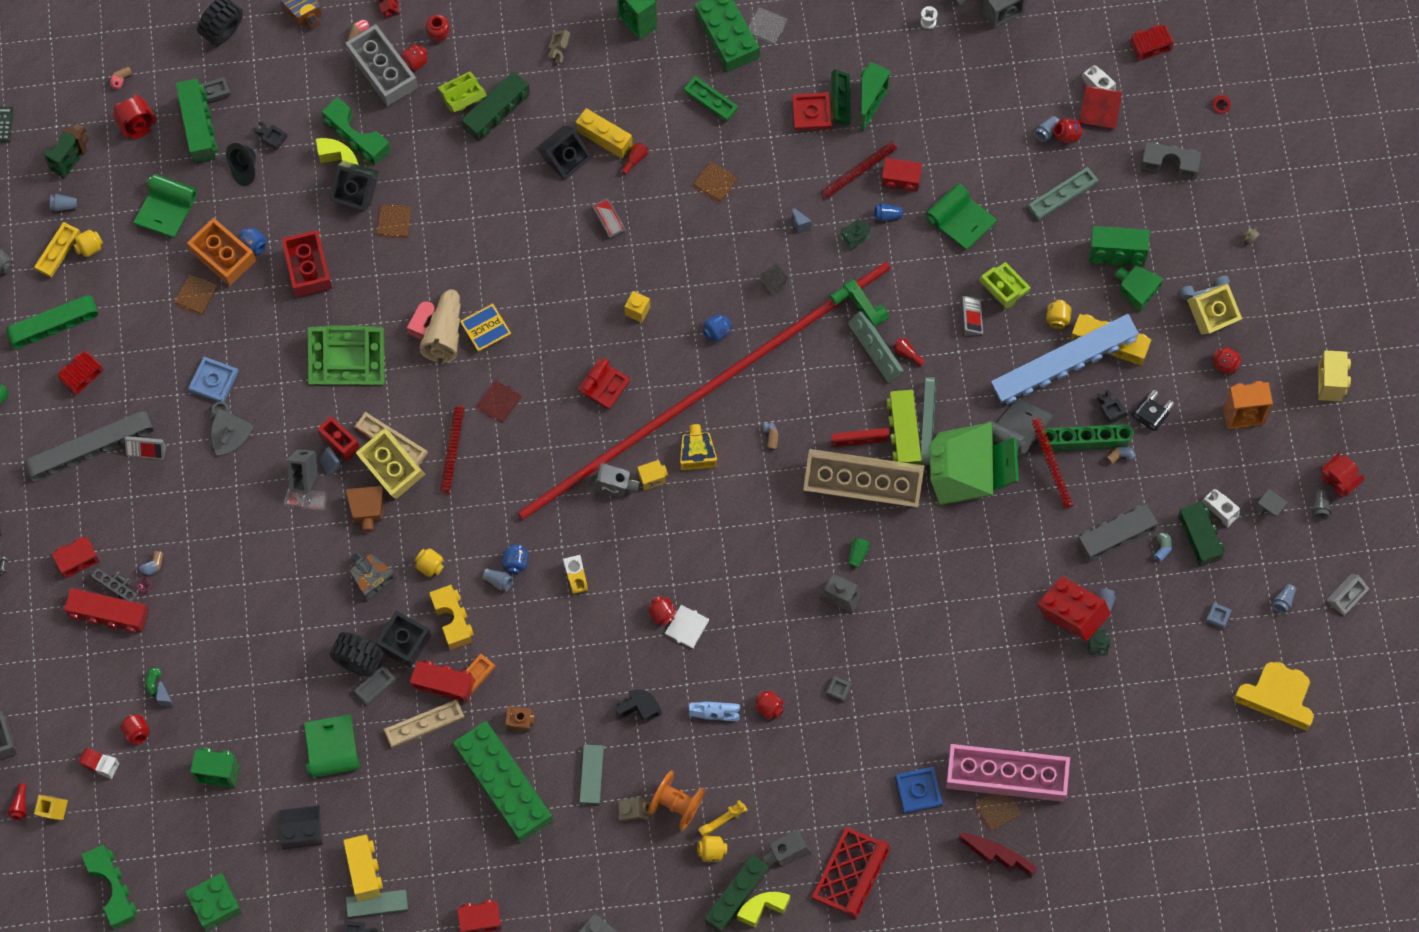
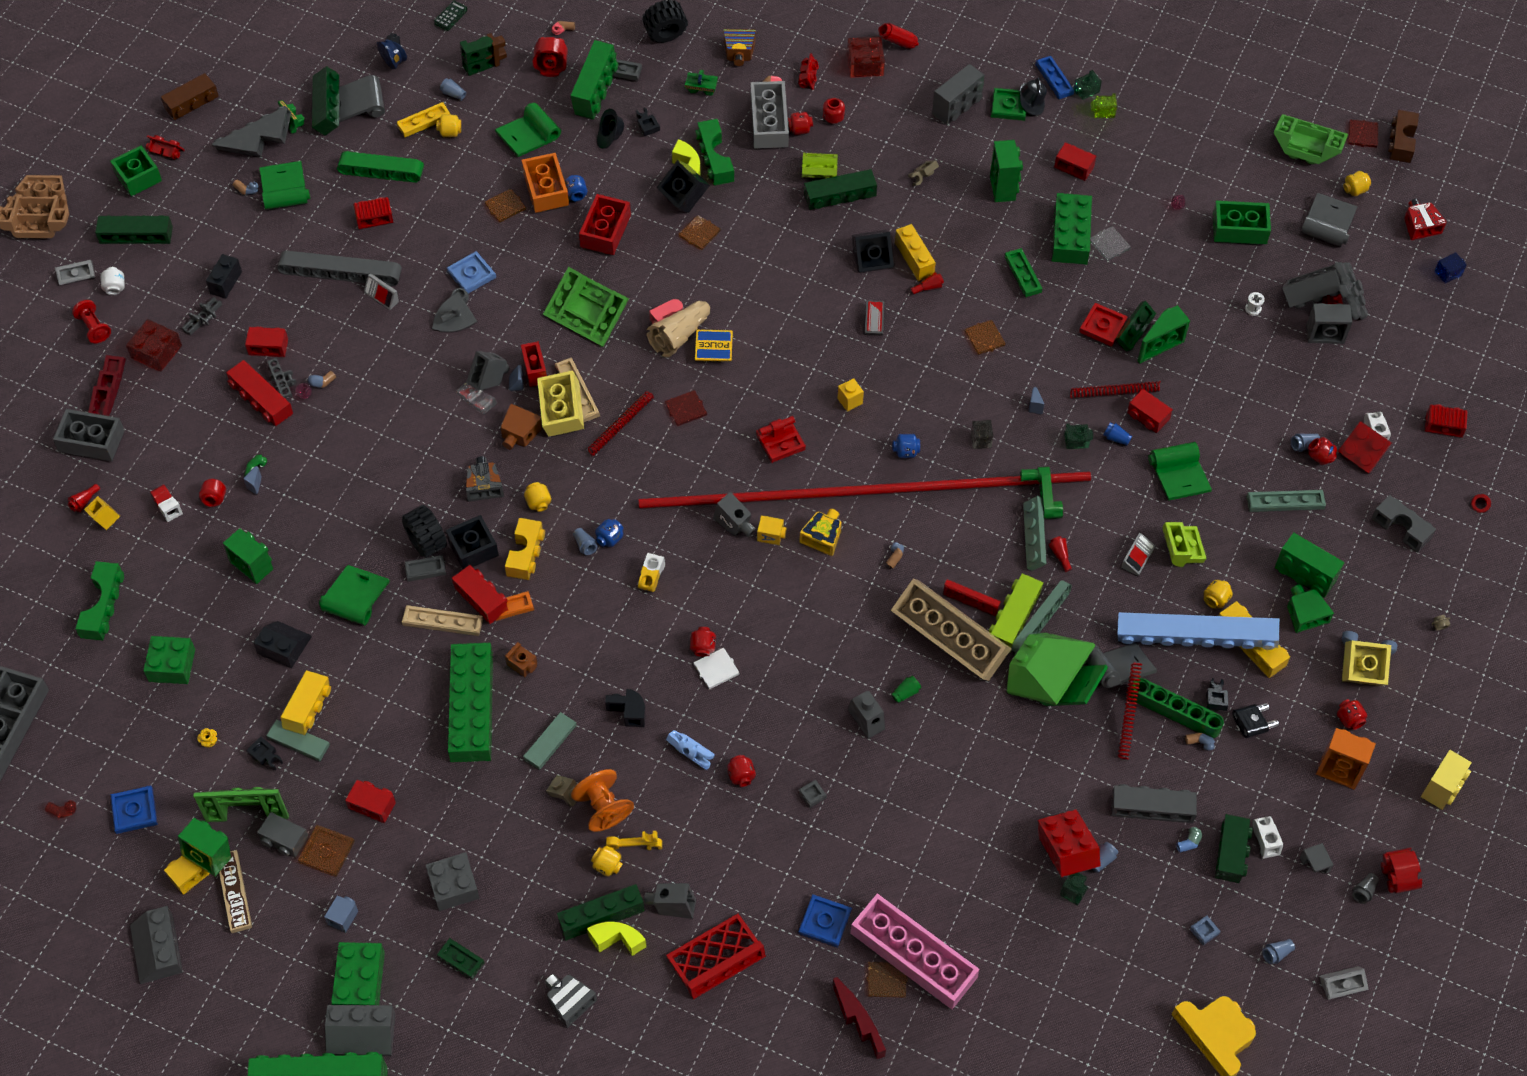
camera: 30 degrees right, 10 degrees down
(294, 66) = (701, 82): none -> green hips

